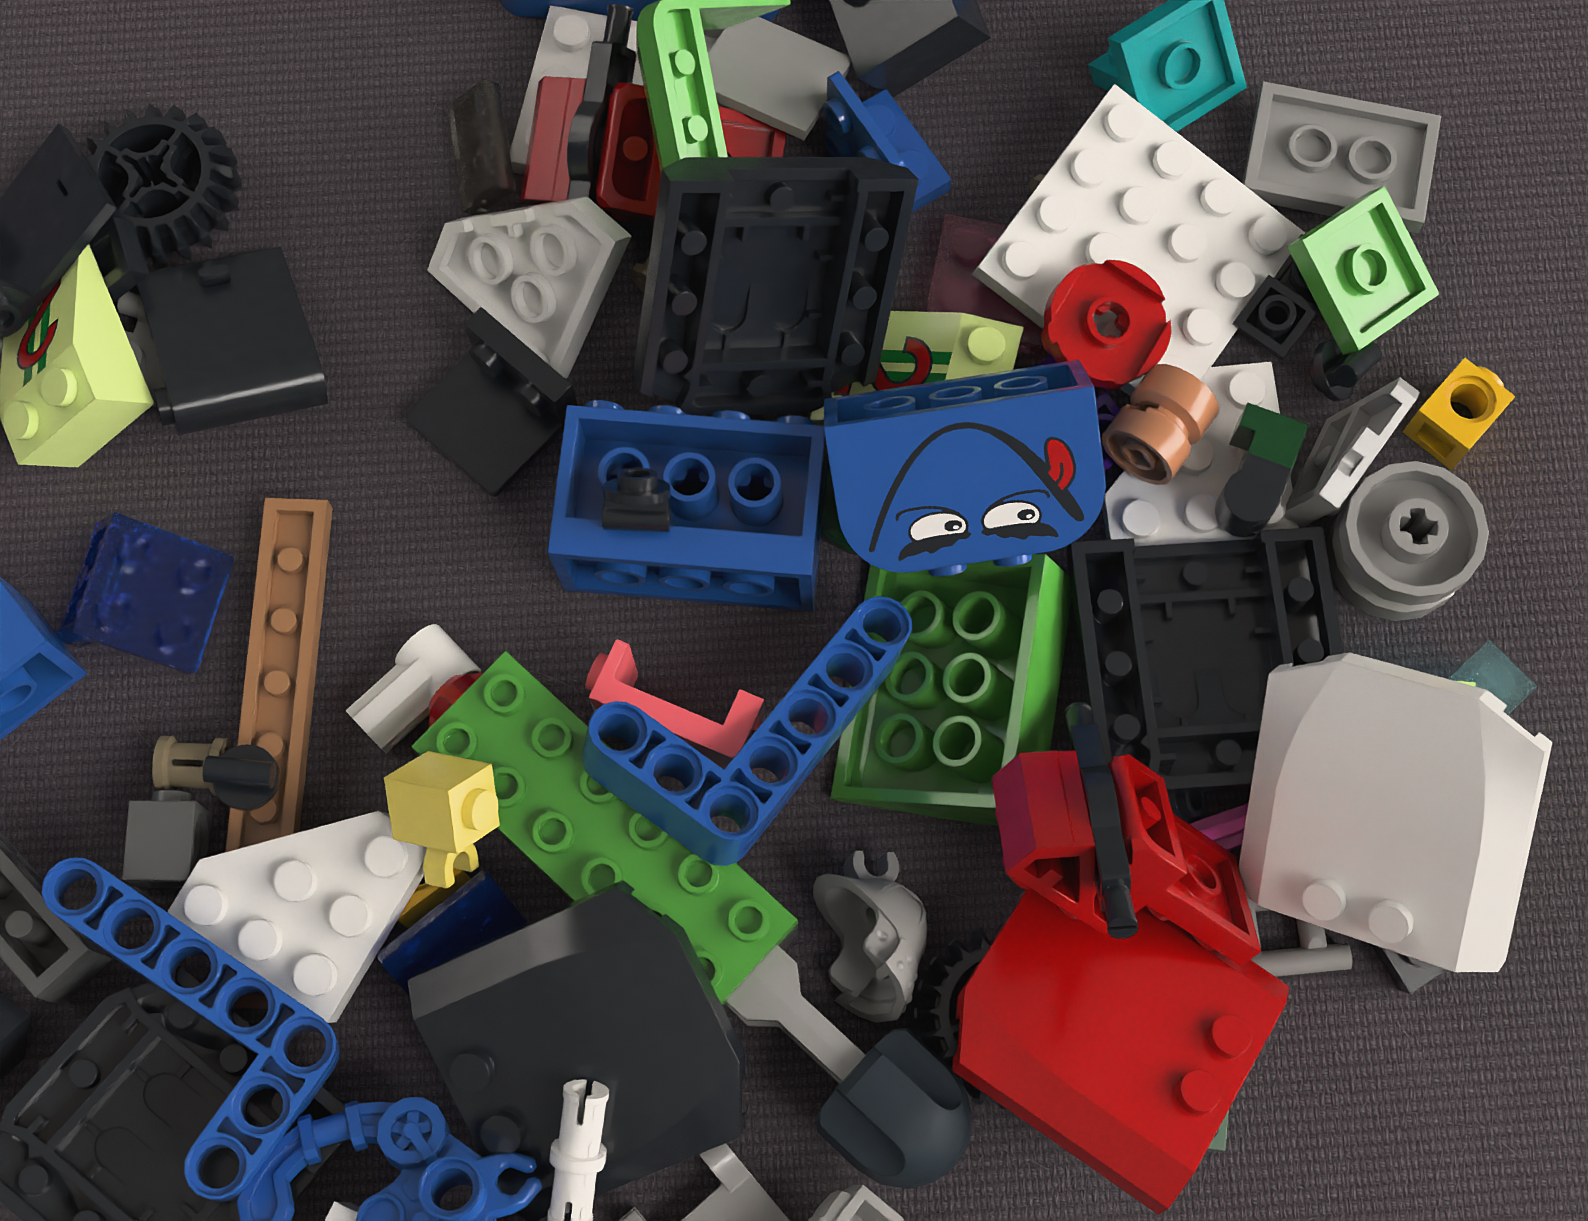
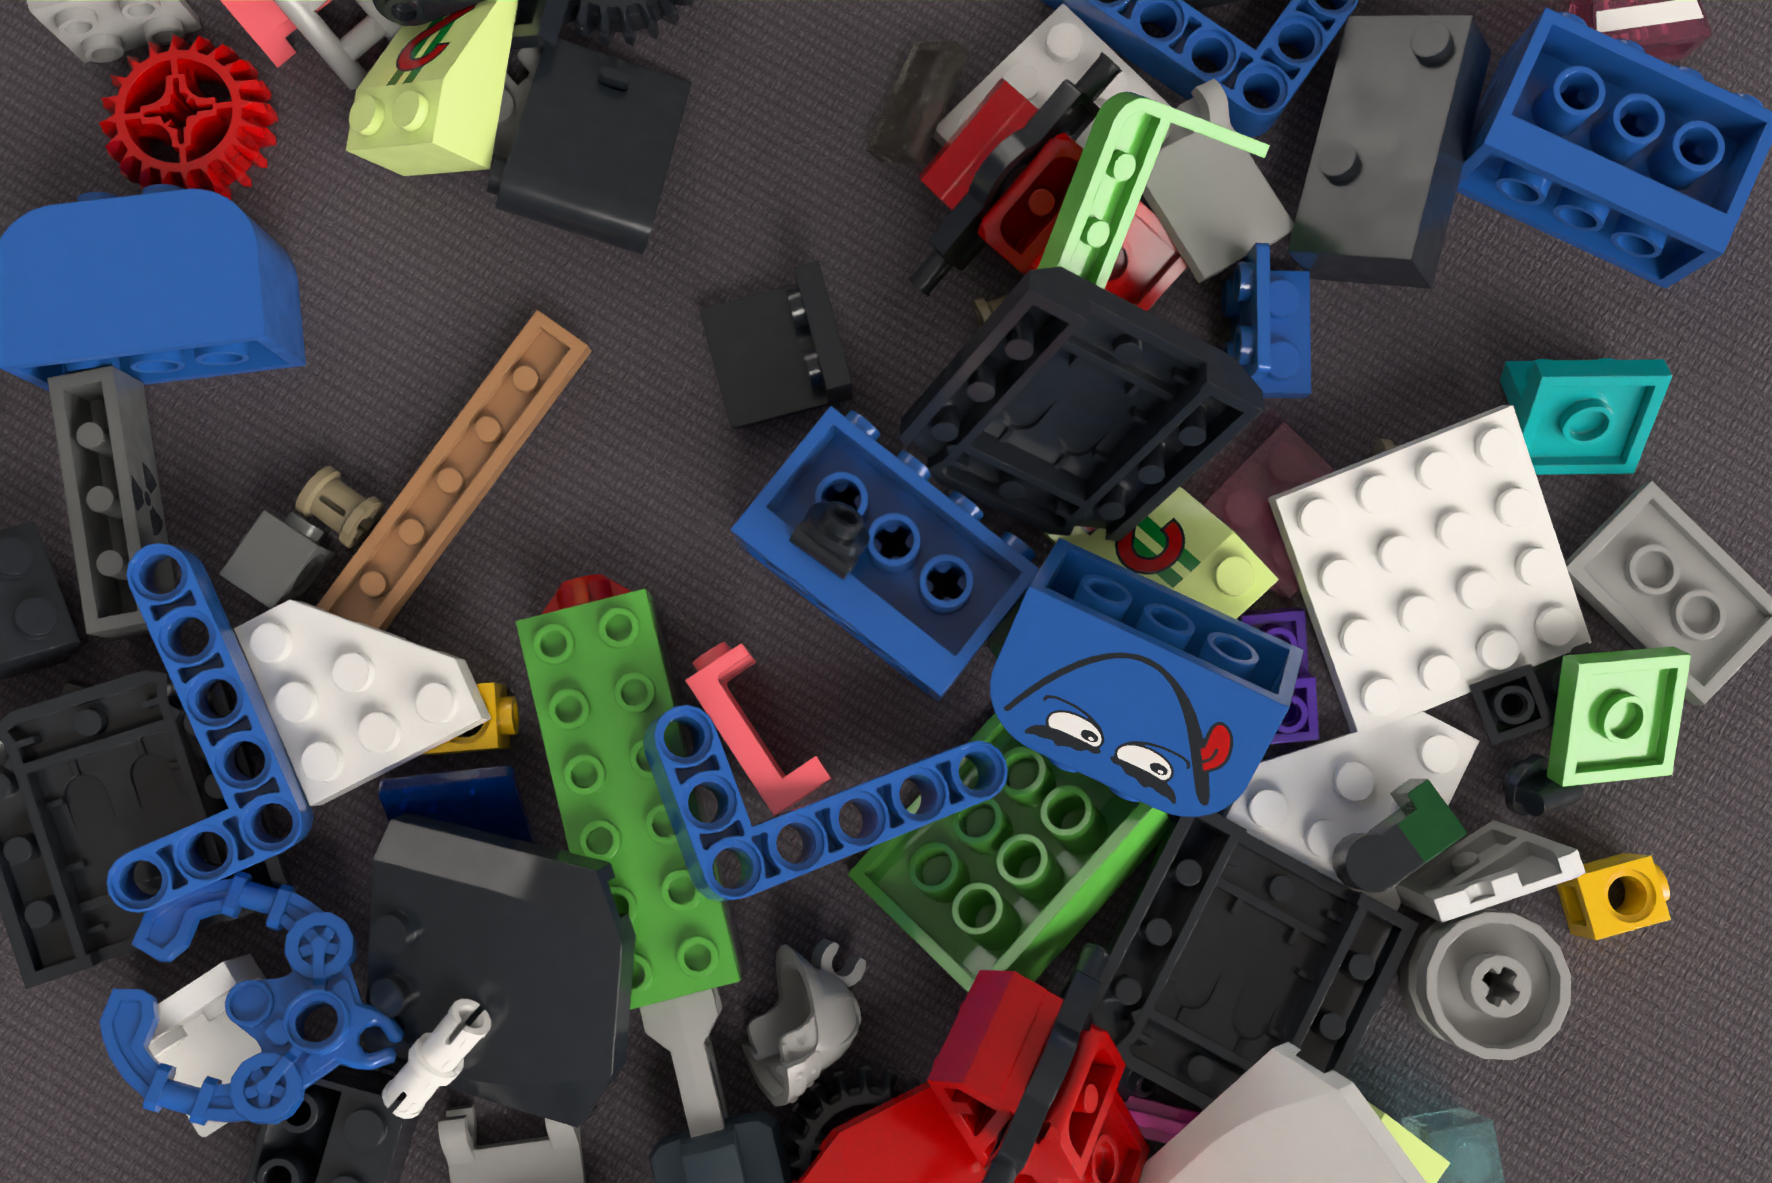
camera: 25 degrees right, 10 degrees up
(146, 593) = (389, 332): clear blue bracket -> none
(243, 777) = (369, 549): black plate -> none
(404, 693) = (551, 557): white piece -> none
(444, 807) = (504, 697): light yellow brick -> none
(534, 271) = (884, 256): white plate -> none
(1141, 318) = (1387, 638): red plate -> none
(1164, 418) = (1348, 740): nougat wheel -> none

